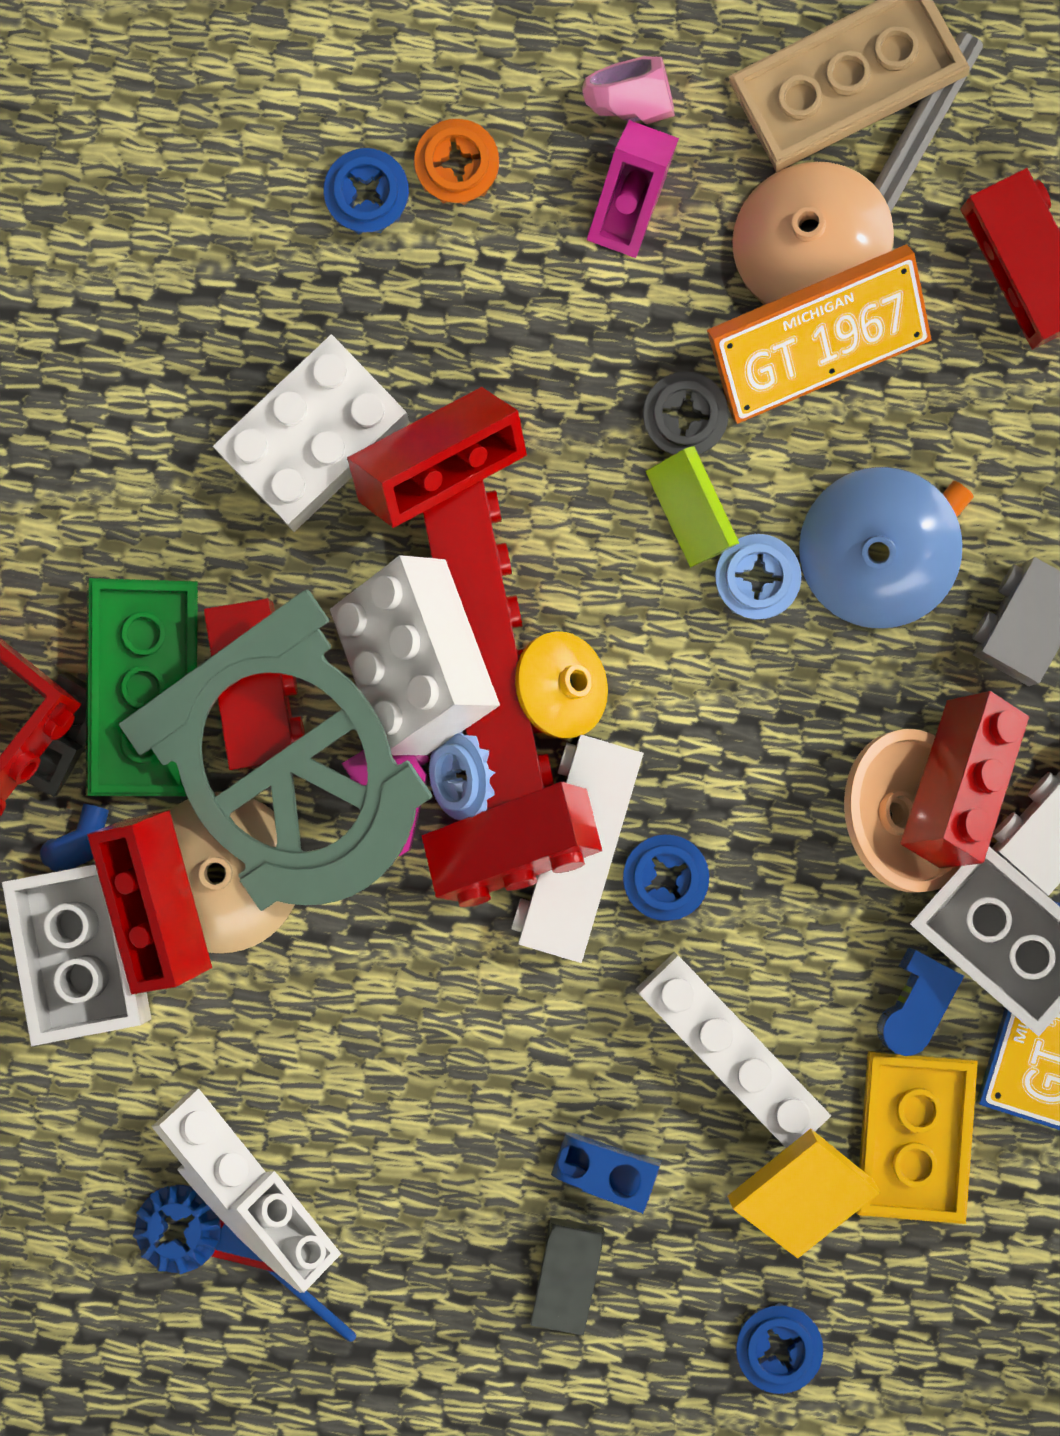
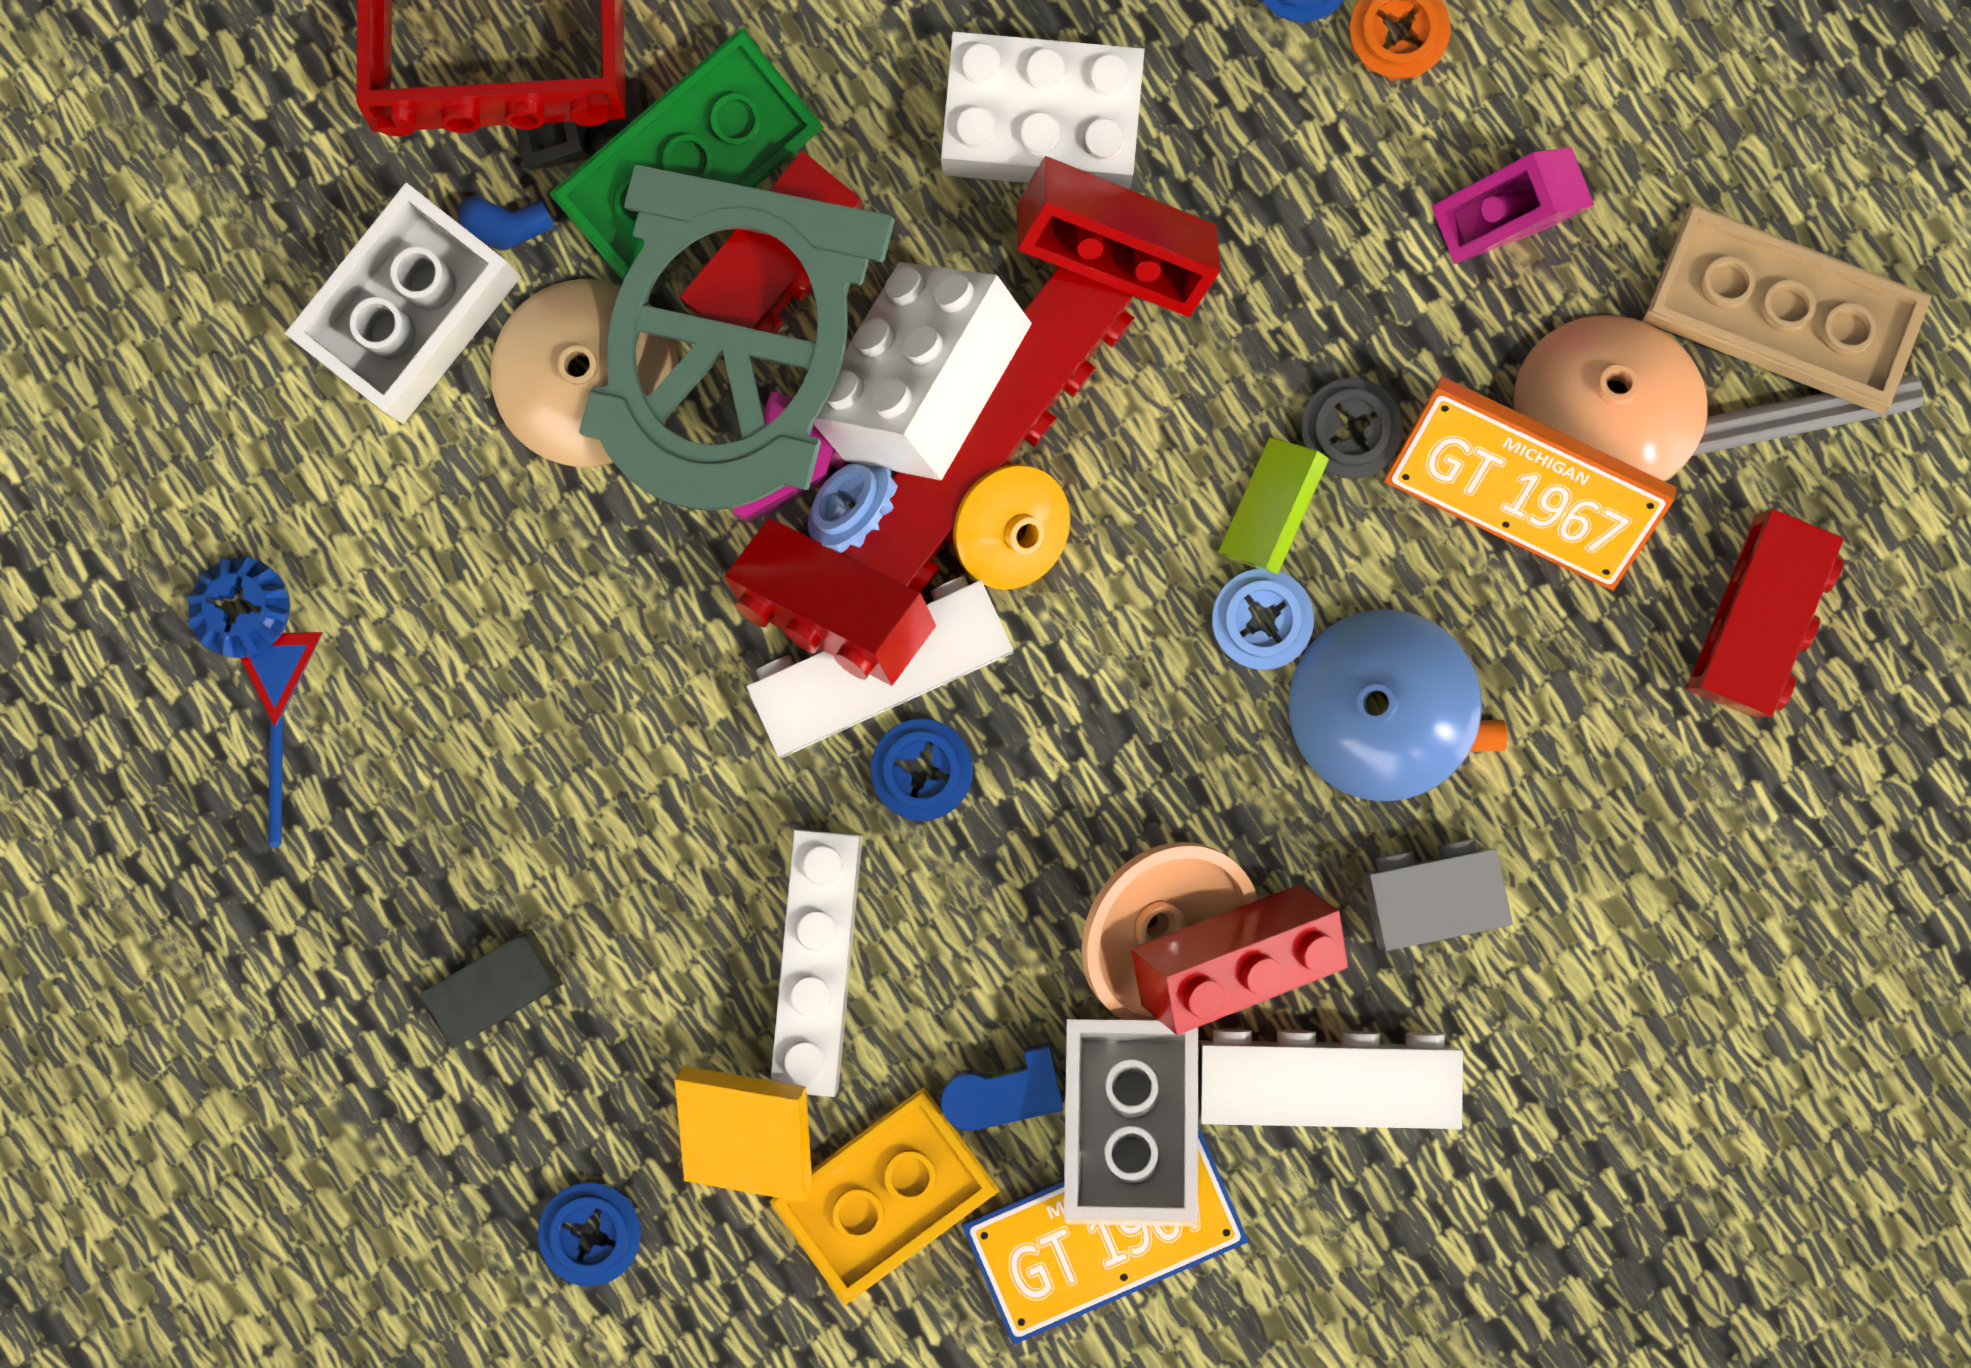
camera: 60 degrees right, 0 degrees up
(150, 902) = (500, 327): red brick -> none
(242, 1194) = (317, 636): white slope -> none
(606, 1171) = (614, 943): blue leg -> none
(631, 90) = (1600, 128): bright pink rock -> none

